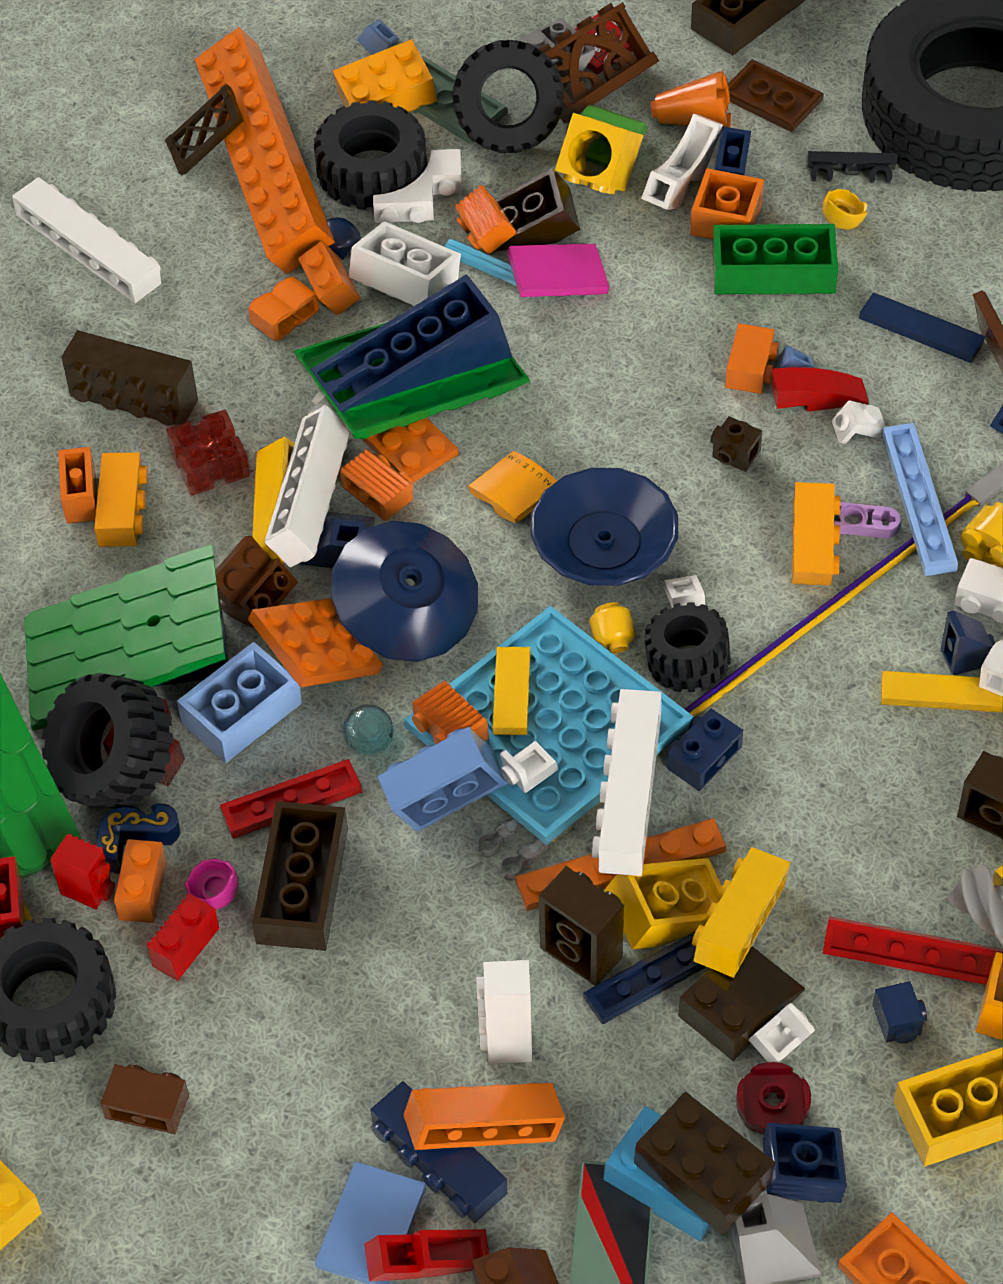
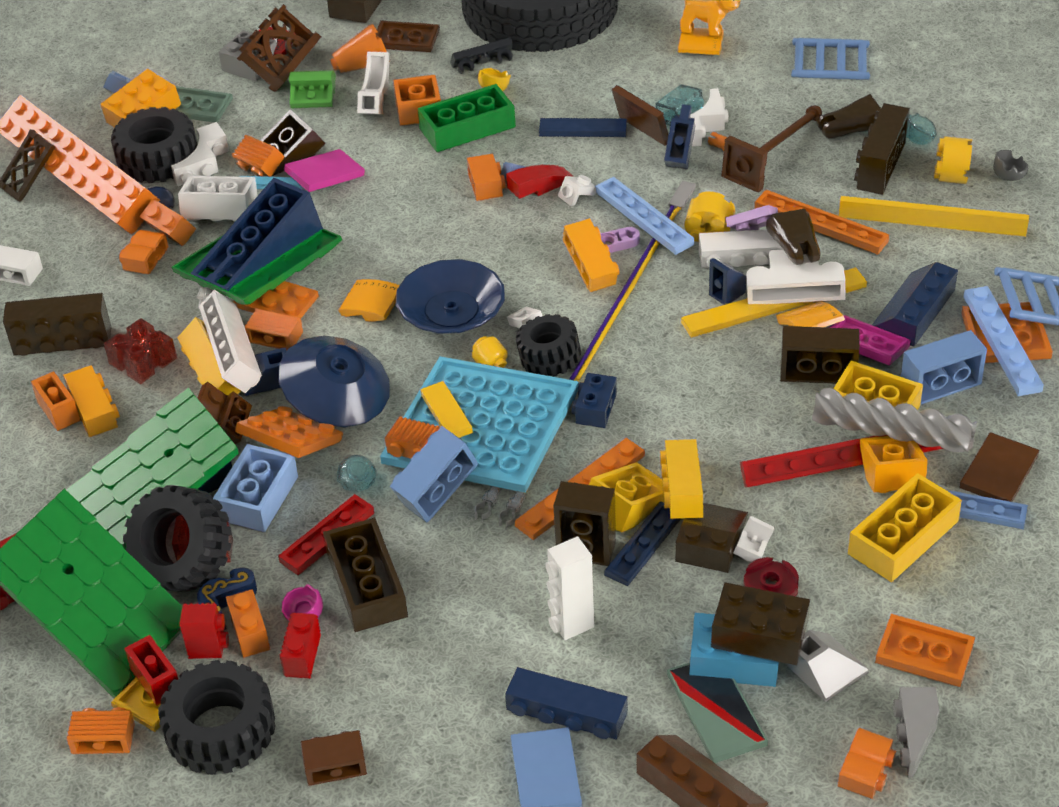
camera: 25 degrees left, 10 degrees down
(424, 1253) = (596, 769): red slope -> none
(468, 89) = (255, 58): black tyre -> none
(483, 1115) = (588, 663): orange brick -> none
(527, 767) = (488, 446): white bracket -> none
(572, 157) = (304, 77): yellow brick -> none
(629, 783) = (565, 428): white brick -> none
(733, 150) = (402, 66): dark blue brick -> none
(736, 443) = (506, 224): dark brown brick -> none
(806, 1162) = (828, 605): dark blue brick -> none
(899, 1012) = (818, 499): dark blue brick -> none

